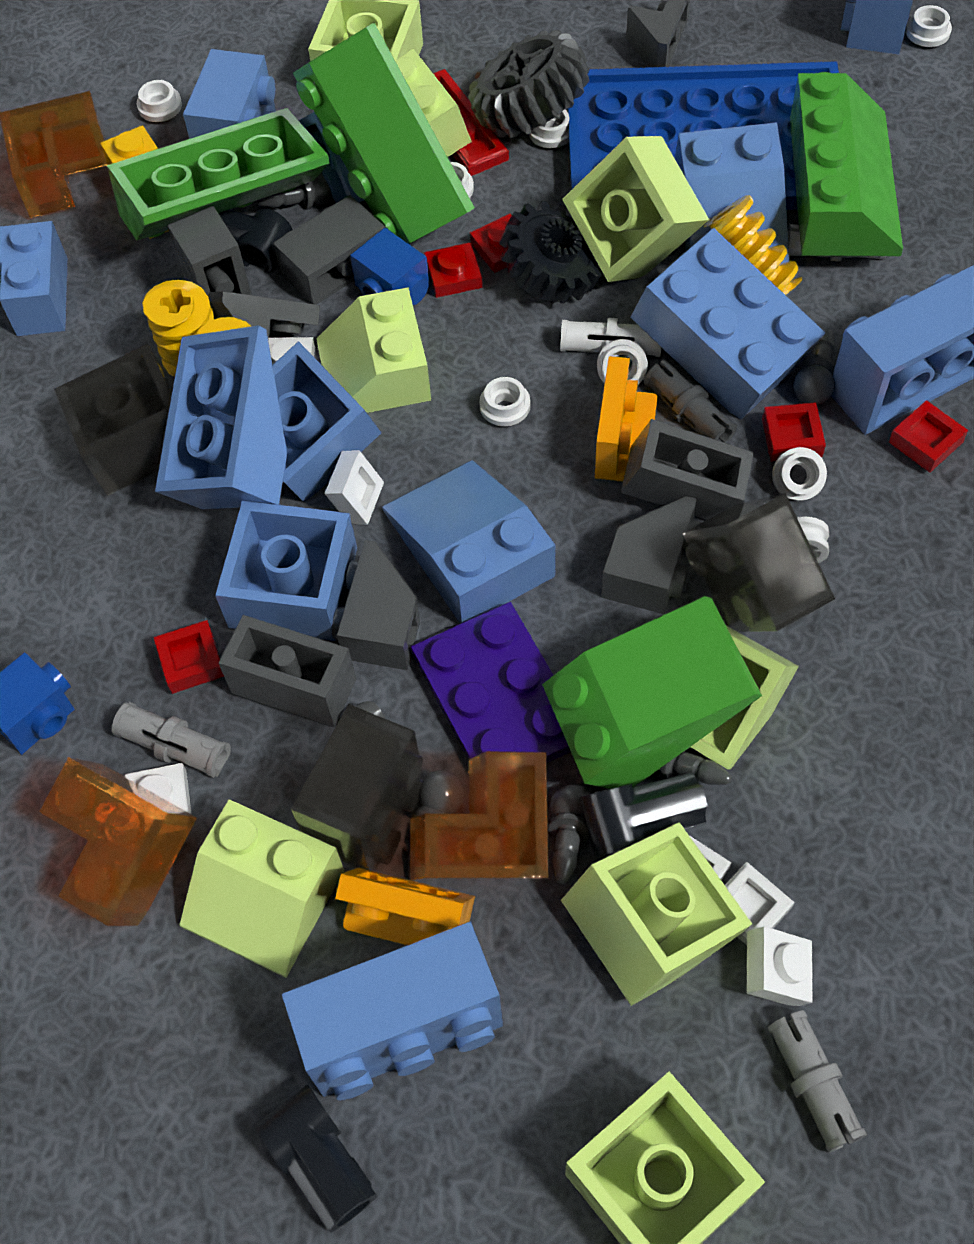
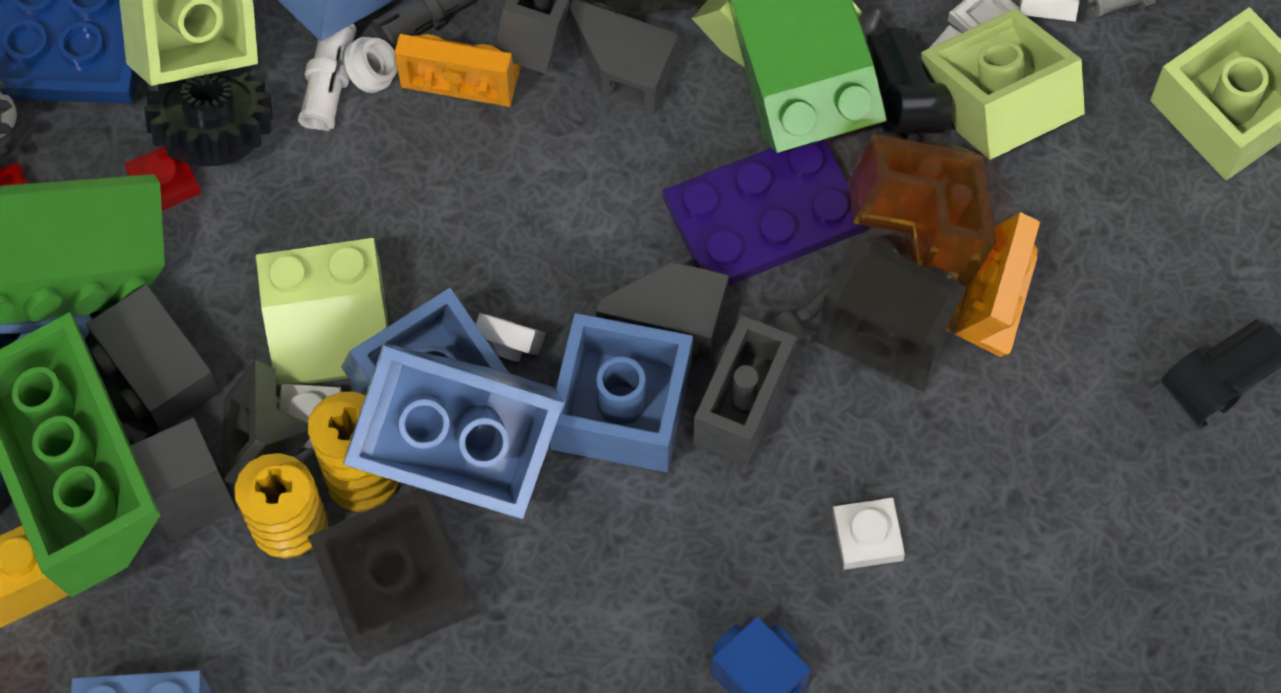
camera: 90 degrees left, 5 degrees up
(129, 841) = (929, 534): clear orange brick -> none
(170, 739) = (803, 521): light grey pin -> none
(189, 656) = (707, 504): red plate -> none
(259, 887) = (974, 422): yellowish green slope -> none
(389, 265) = (202, 291): blue brick -> none
(395, 1012) = (1109, 285): medium blue brick -> none
(453, 270) = (195, 232): red plate -> none
(473, 540) = (580, 223): medium blue slope -> none
(504, 390) = (400, 170): white plate -> none

